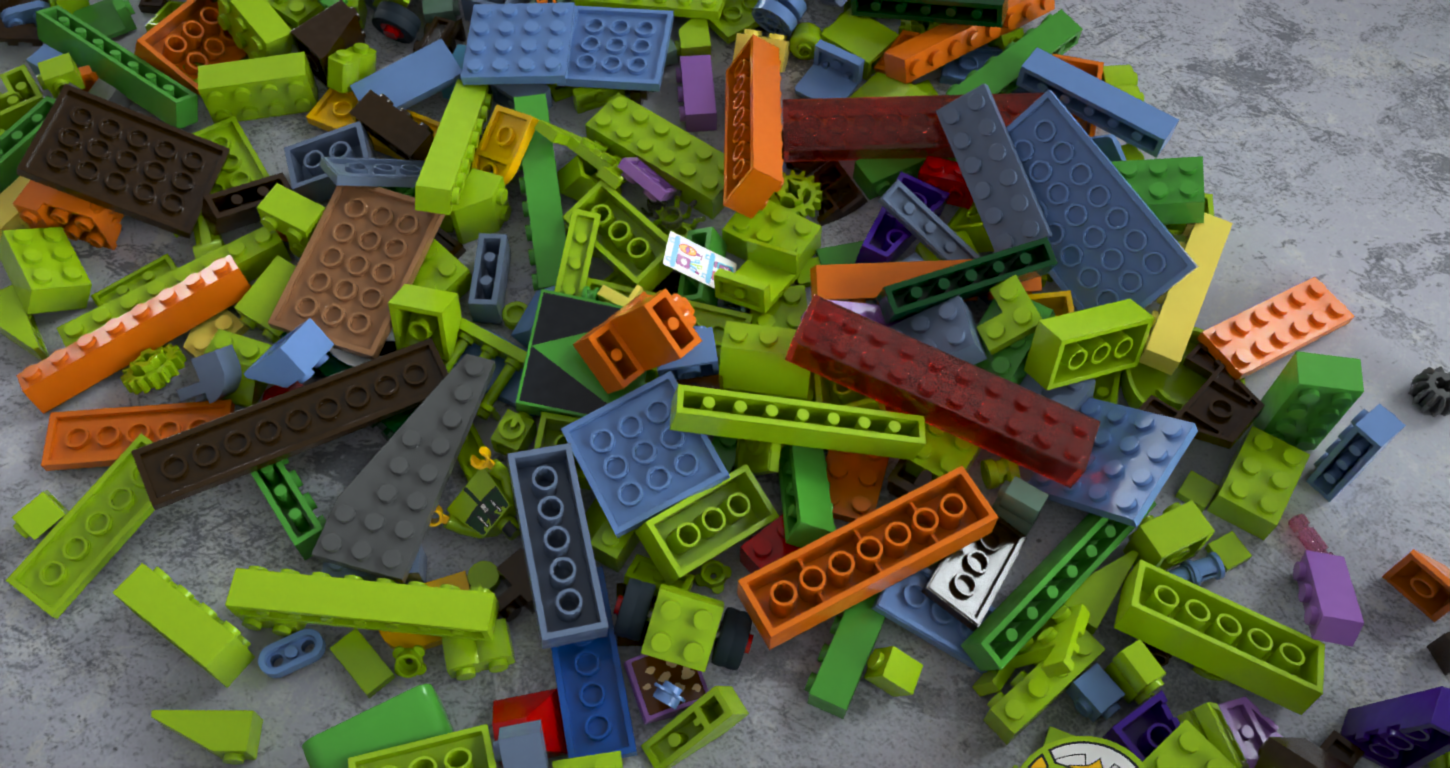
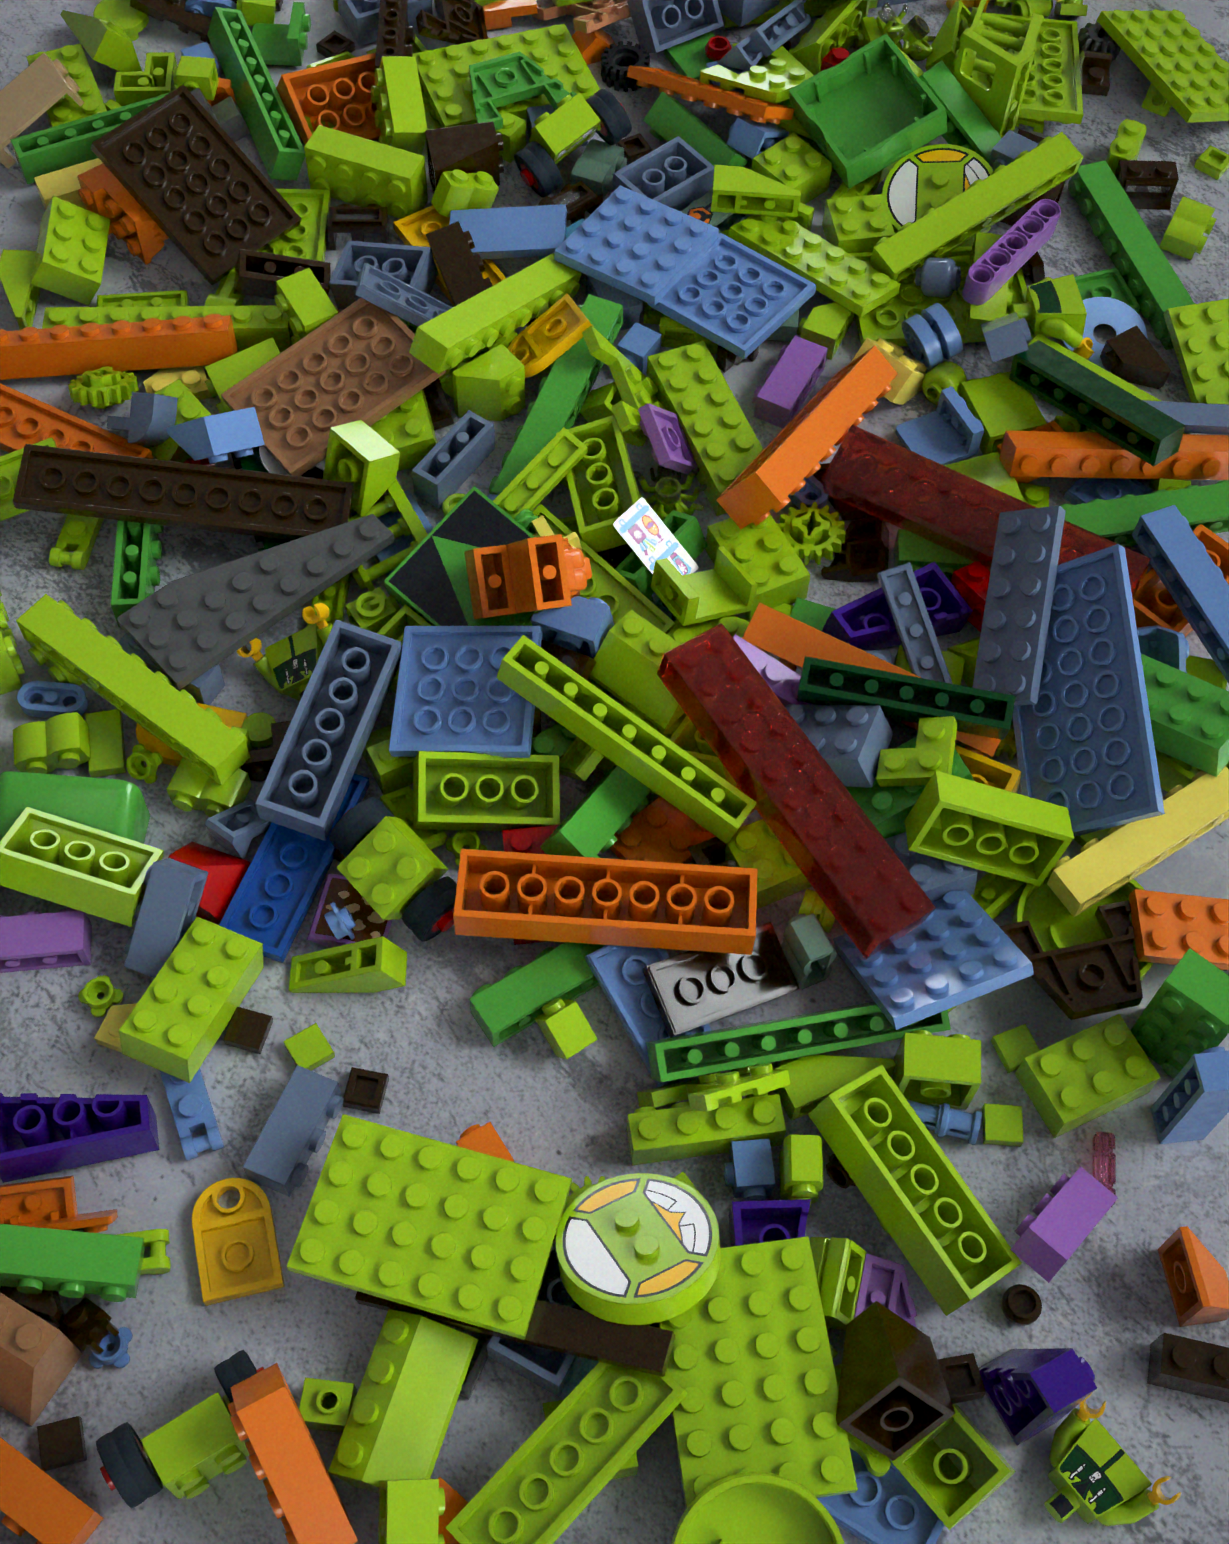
camera: 30 degrees right, 0 degrees up
(214, 505) = (76, 535): none -> lime plate
(276, 130) = (357, 222): none -> dark brown window
(319, 691) = (51, 744): none -> lime brick
(527, 666) = (237, 827): none -> sand blue slope
(570, 117) = (639, 344): none -> medium blue brick
(1336, 673) = (1021, 1305): none -> dark brown plate

